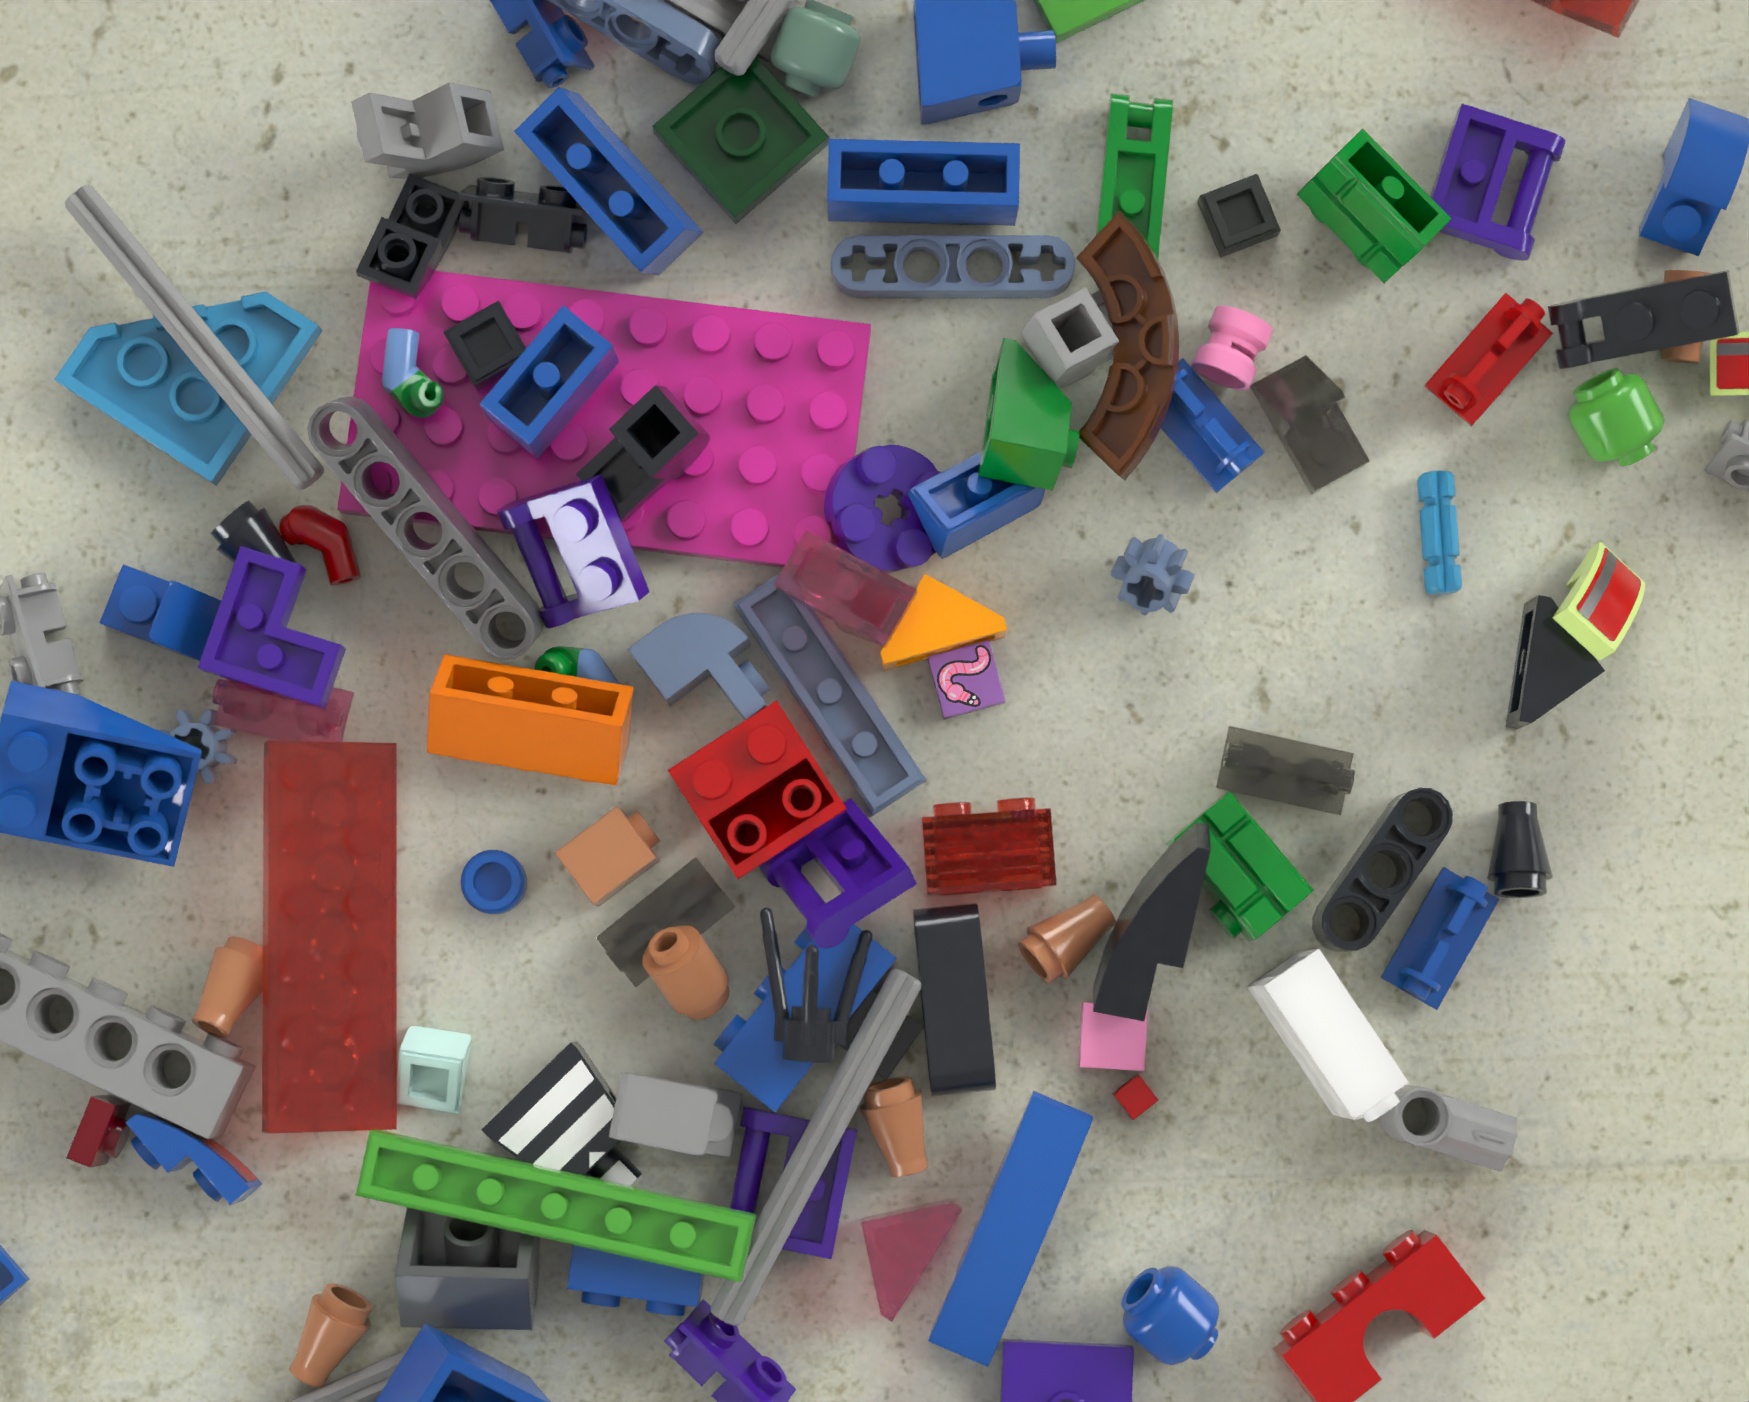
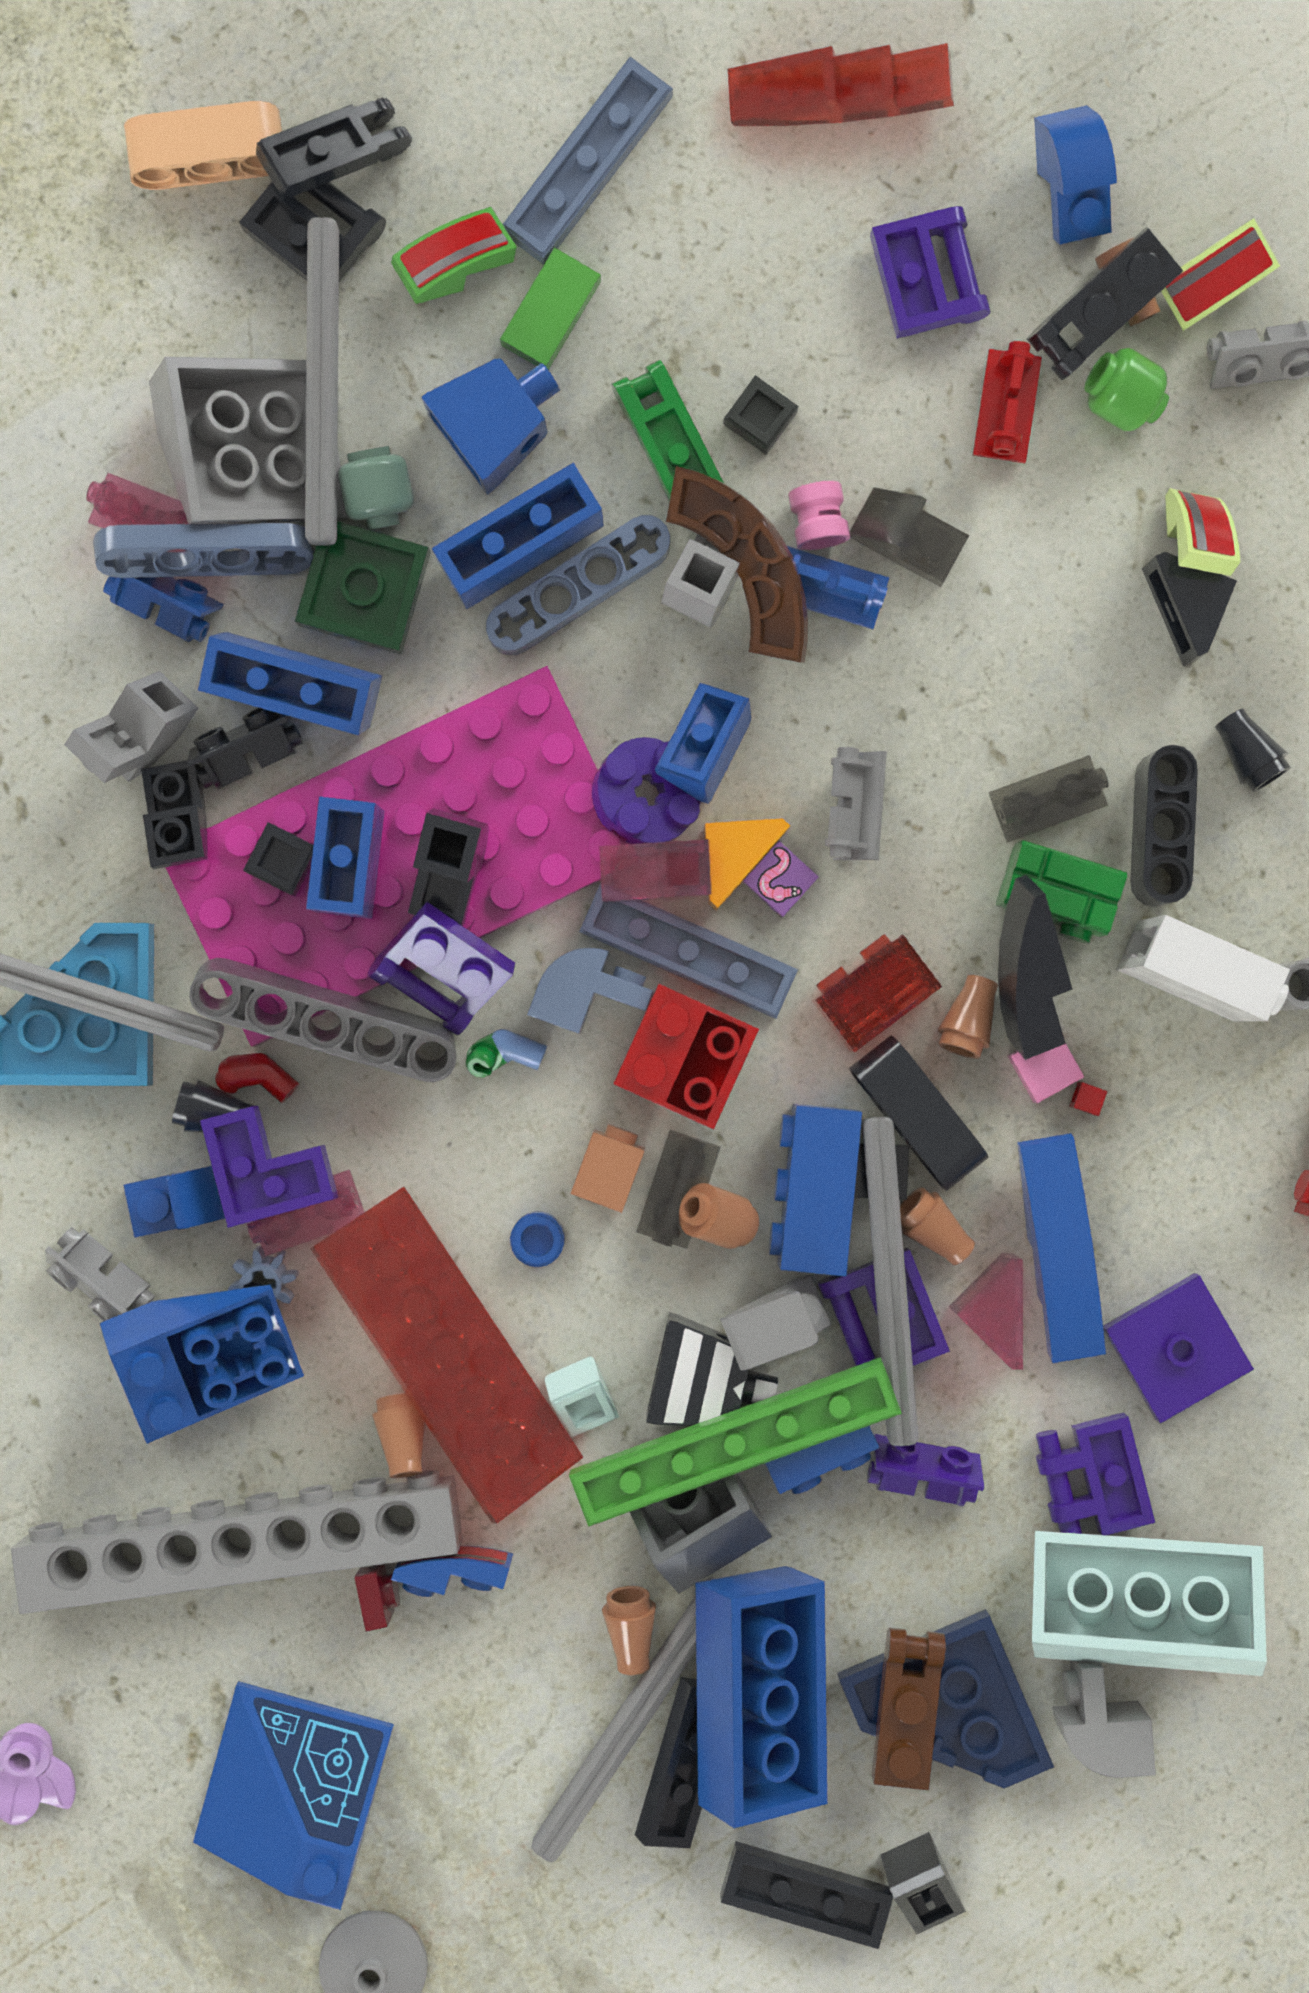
camera: 30 degrees left, 5 degrees up
(404, 380) = (238, 923): arm -> none
(529, 719) = (489, 1109): orange brick -> none
(809, 1032) = (836, 1206): black plant -> none
(856, 862) = (791, 1062): dark purple plate -> none
(1026, 423) = (707, 666): green slope -> none
(1076, 670) = (858, 815): none -> light grey hinge
(1152, 574) = (867, 718): sand blue gear -> none
(1170, 1315) = (1212, 1236): blue head -> none
(1373, 206) = (857, 345): green brick -> none
(1439, 532) = (1051, 555): dark azure axle -> none
(1440, 937) = (1232, 847): blue hinge -> none

